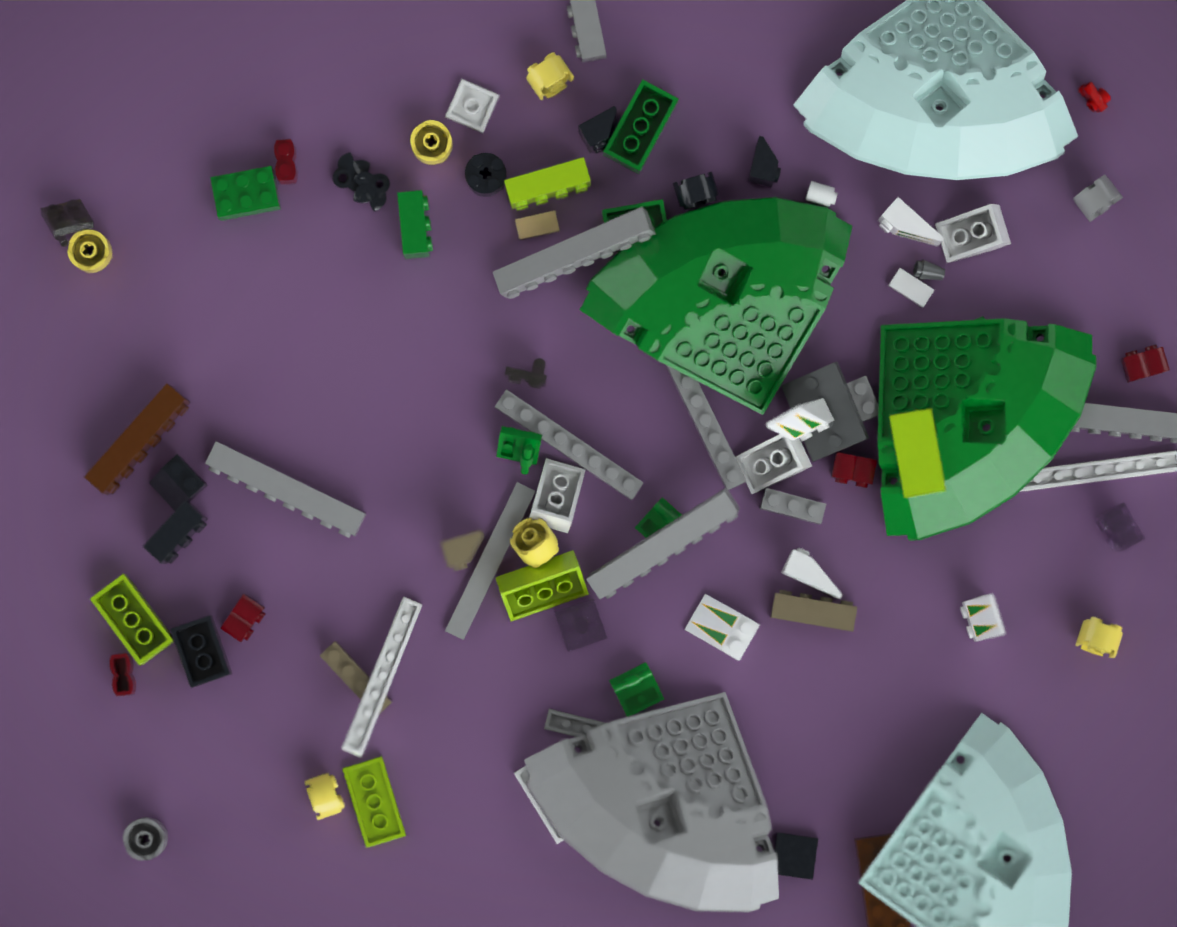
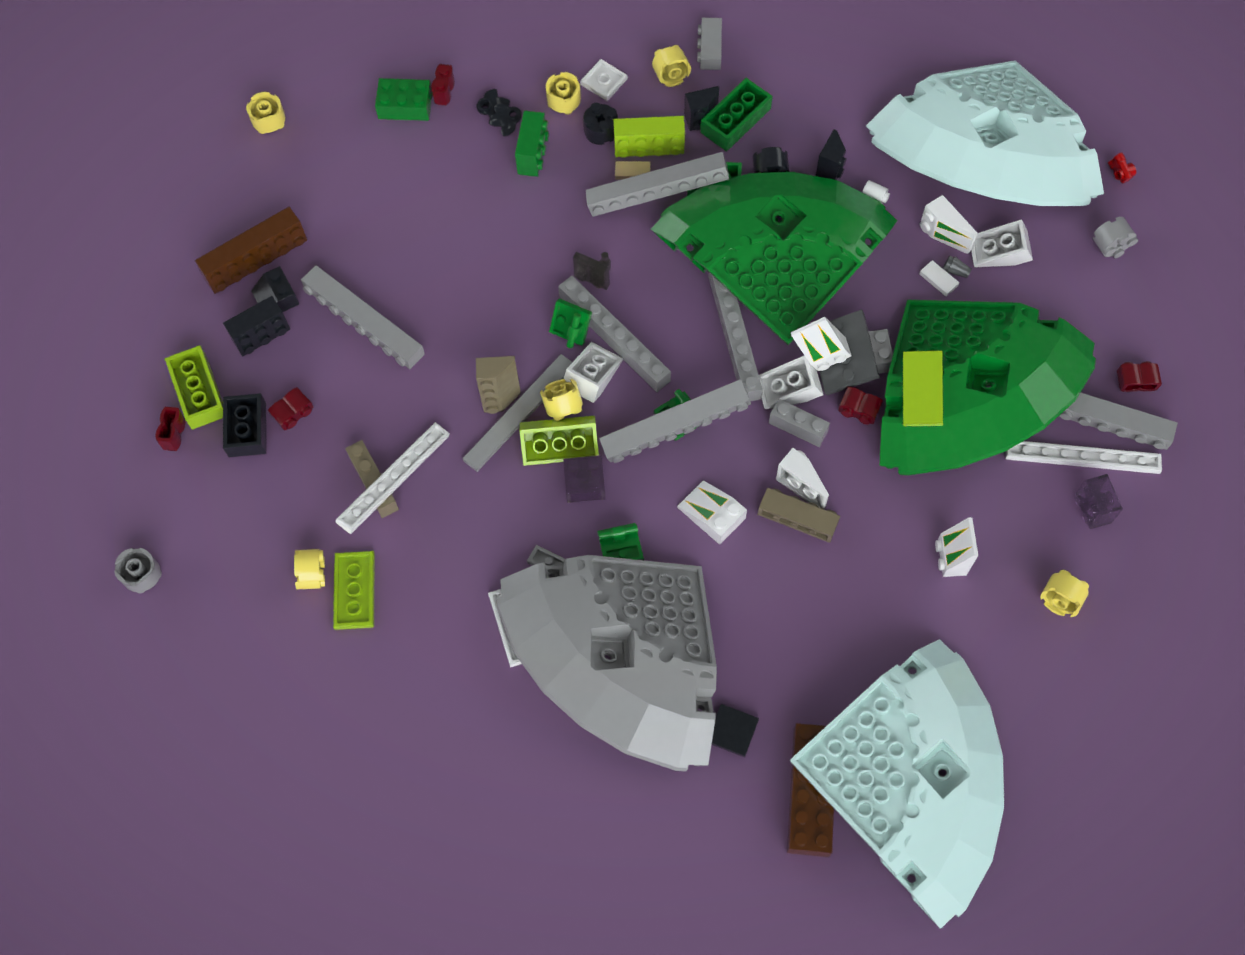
camera: 20 degrees right, 20 degrees down
(66, 219) = (249, 83): clear smoke plate -> none

